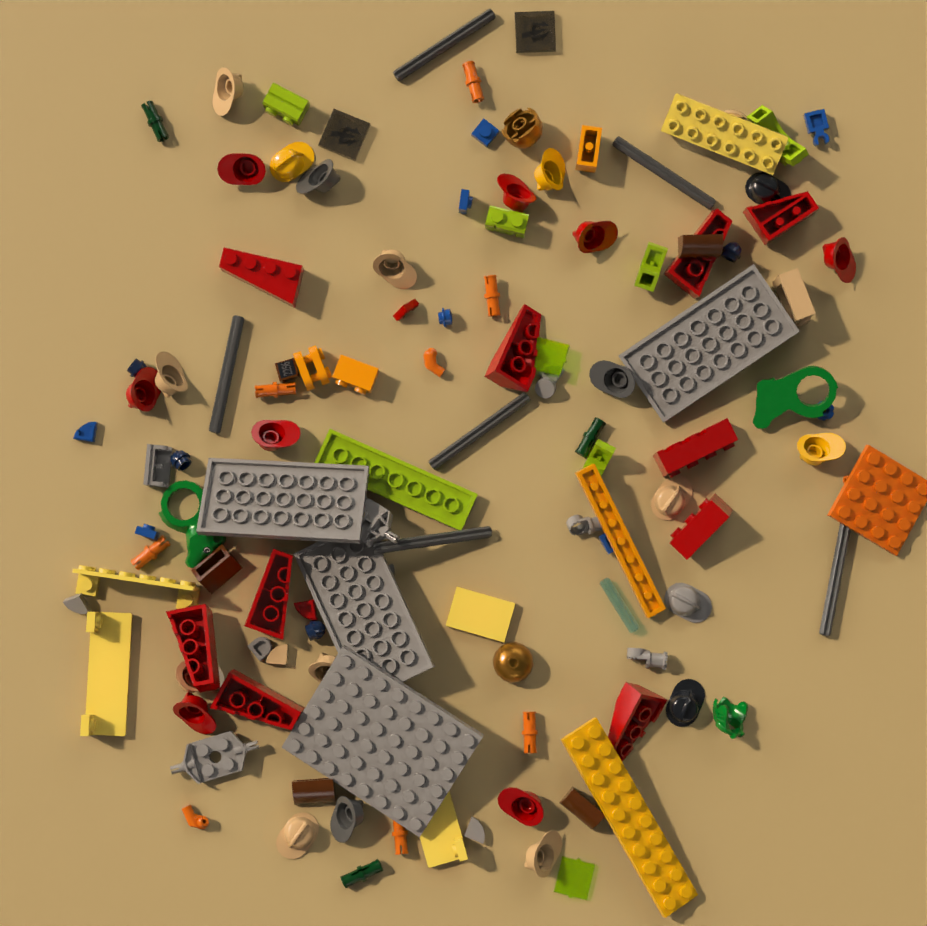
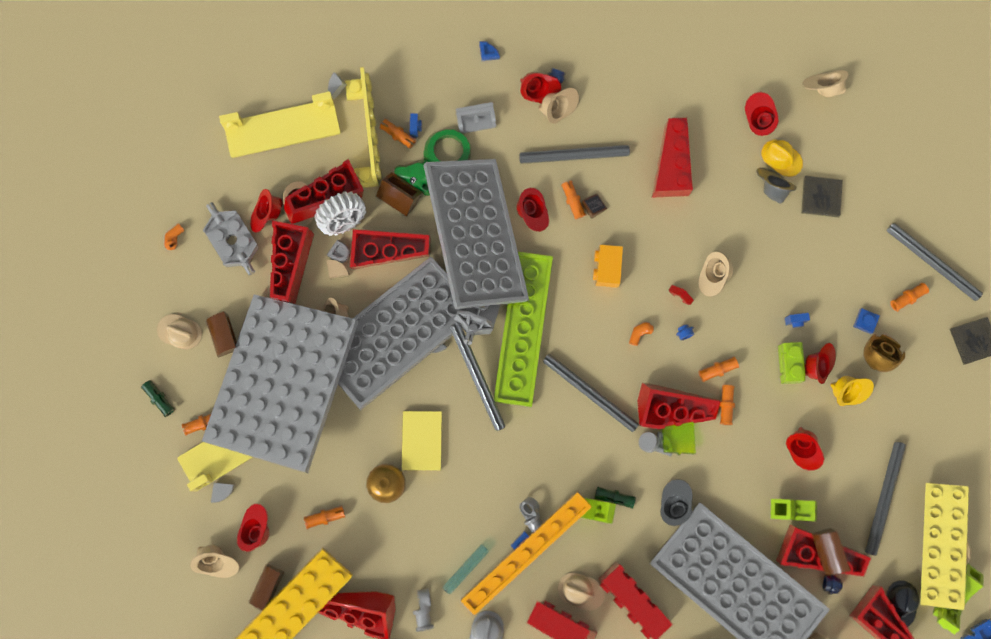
camera: 70 degrees right, 5 degrees down
(155, 121) = (778, 31): dark green pin -> none
(180, 460) = (486, 136): dark blue plate -> none
(223, 634) = (340, 213): none -> white gear
(285, 104) = (832, 137): lime brick -> none
(307, 609) = (384, 283): red tile -> none
(315, 630) = (367, 295): dark blue plate -> none
(323, 373) = (613, 226): light orange brick -> none
(345, 817) = (204, 370): dark grey piece -> none
(530, 298) = (727, 405): none -> orange pin
(574, 877) = (199, 597): clear neon green piece -> none
(588, 148) = (885, 419): light orange brick -> none

